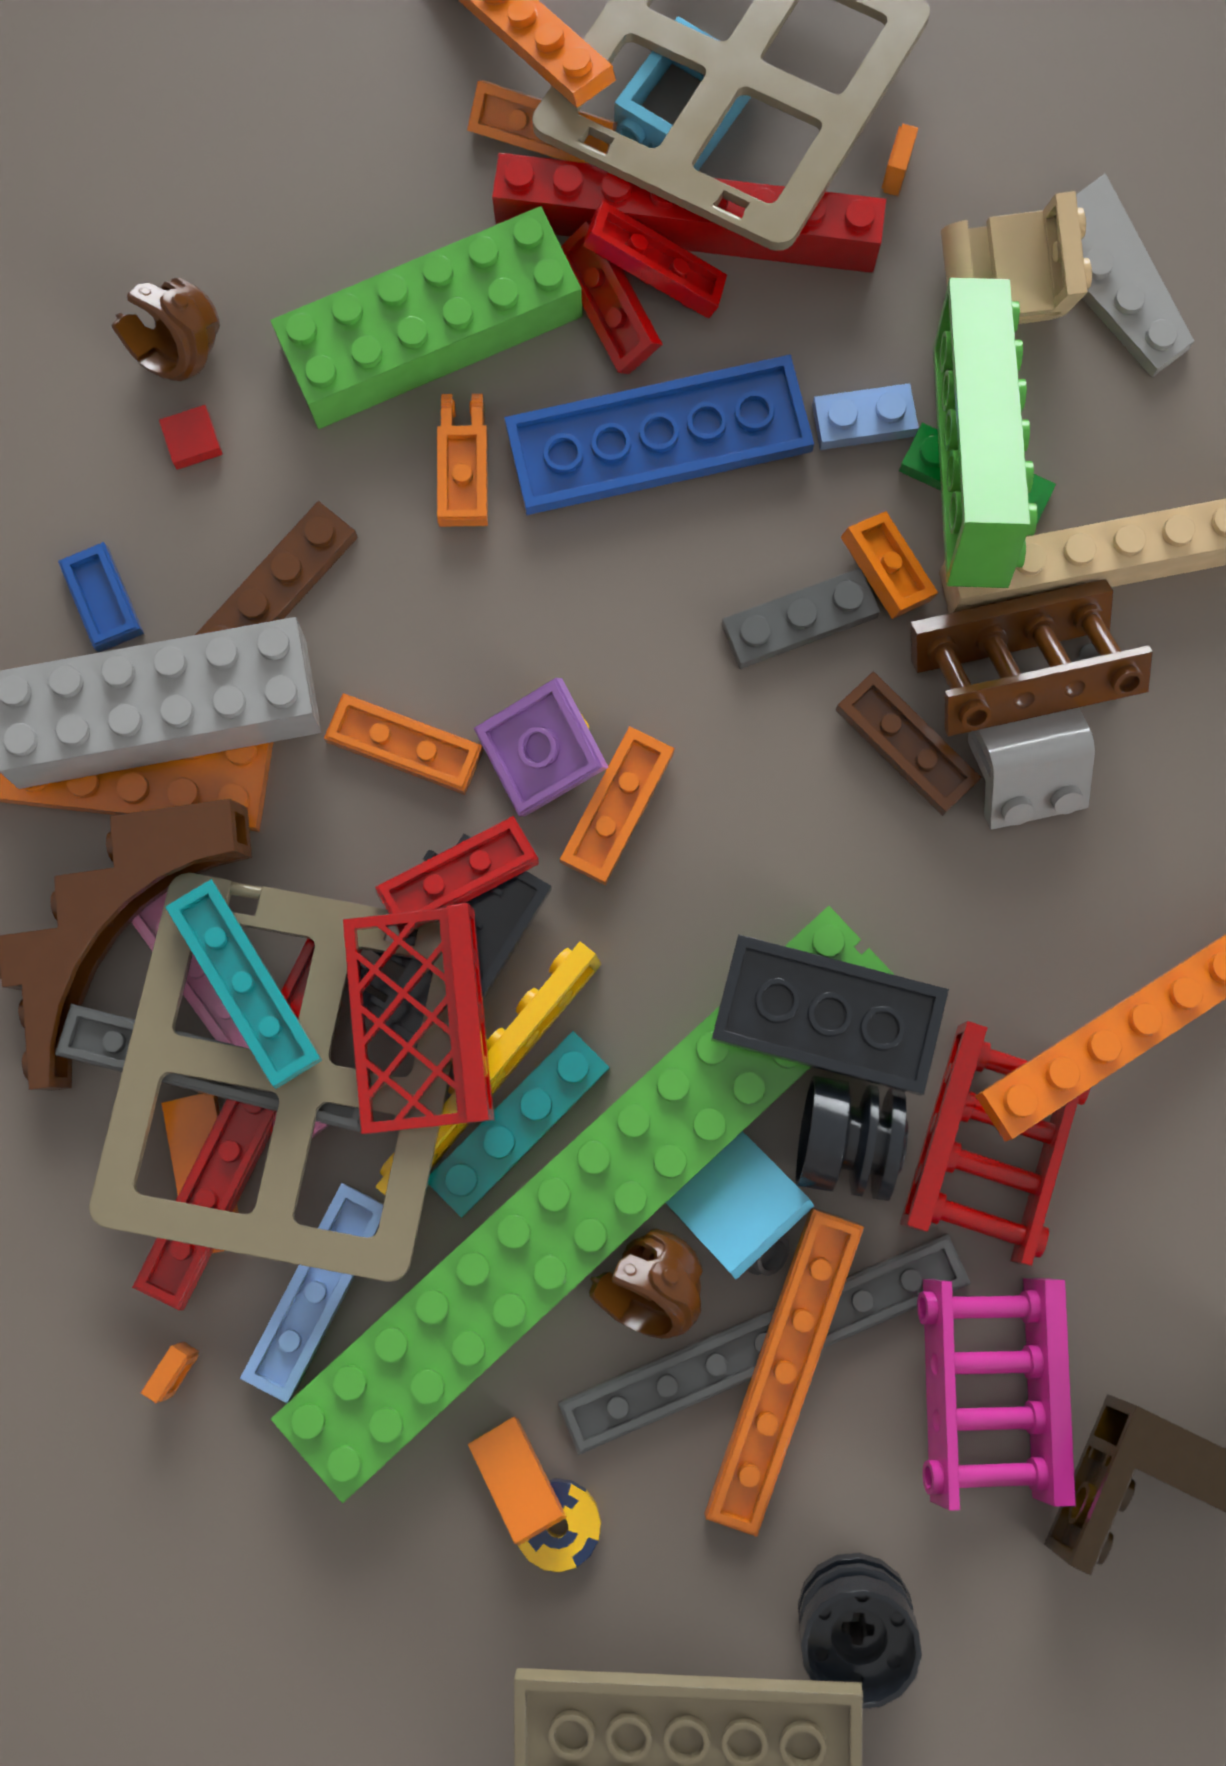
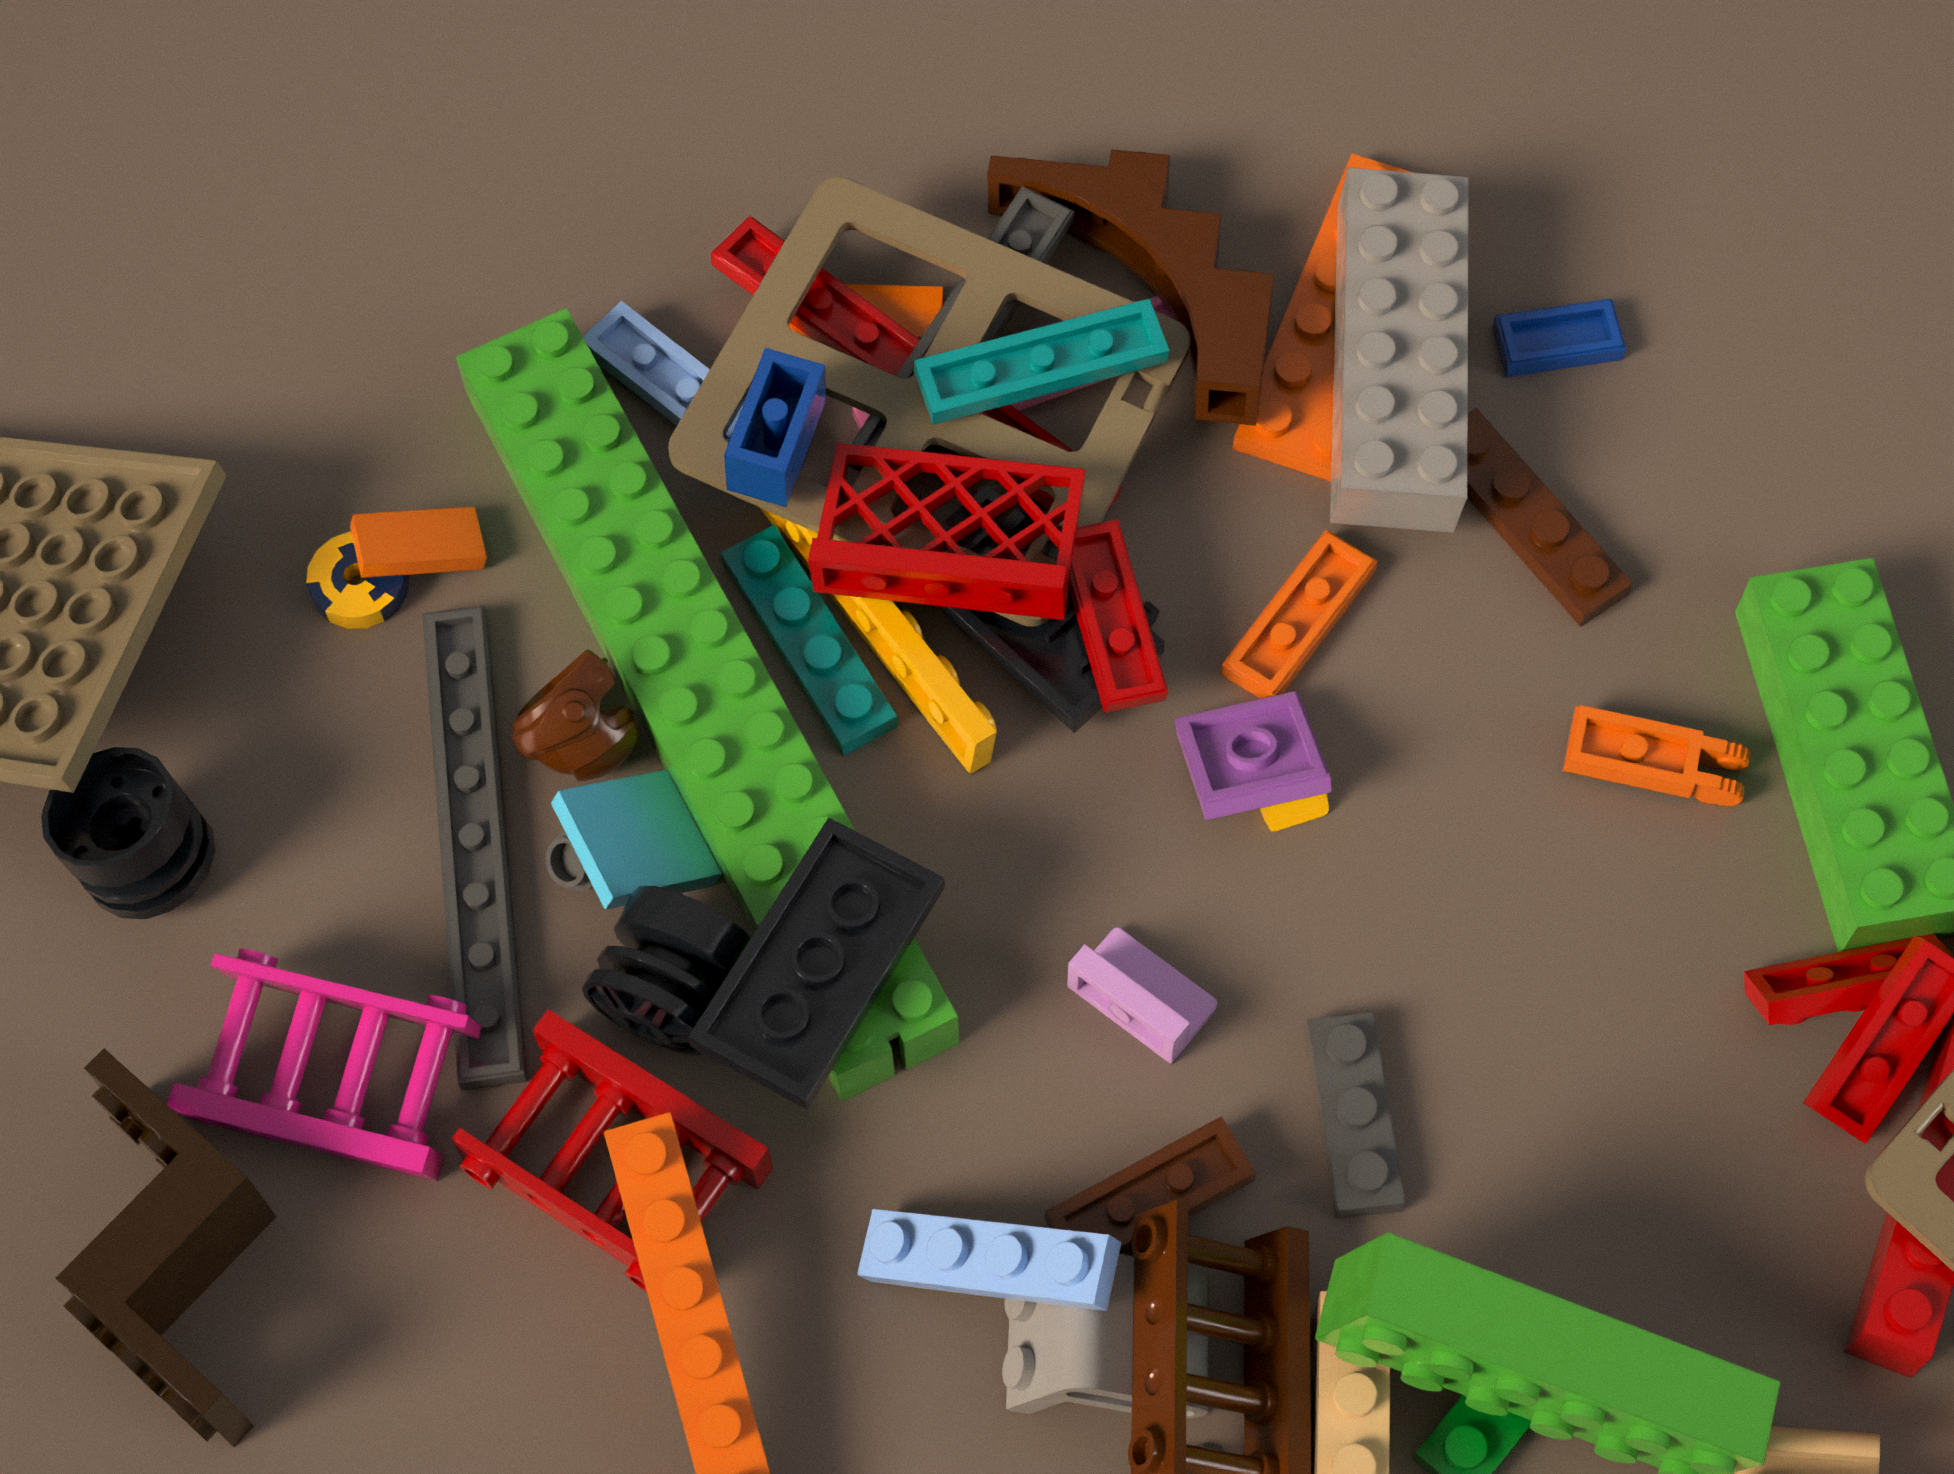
camera: 105 degrees right, 15 degrees down
(170, 1372) = (651, 241): orange tile -> none
(182, 331) = (1883, 458): reddish brown helmet -> none
(190, 437) = (1747, 466): red tile -> none
(370, 1182) = (775, 427): none -> blue brick
(617, 805) = (1159, 829): orange plate -> none
(659, 434) = (1645, 1003): blue plate -> none
(749, 787) = (1141, 993): none -> lavender panel
(783, 1372) = (437, 844): orange tile -> none
(865, 416) = (1626, 1263): light blue plate -> none
(889, 564) = (1428, 1219): orange plate -> none
(1007, 833) = (990, 1259): none -> light blue plate

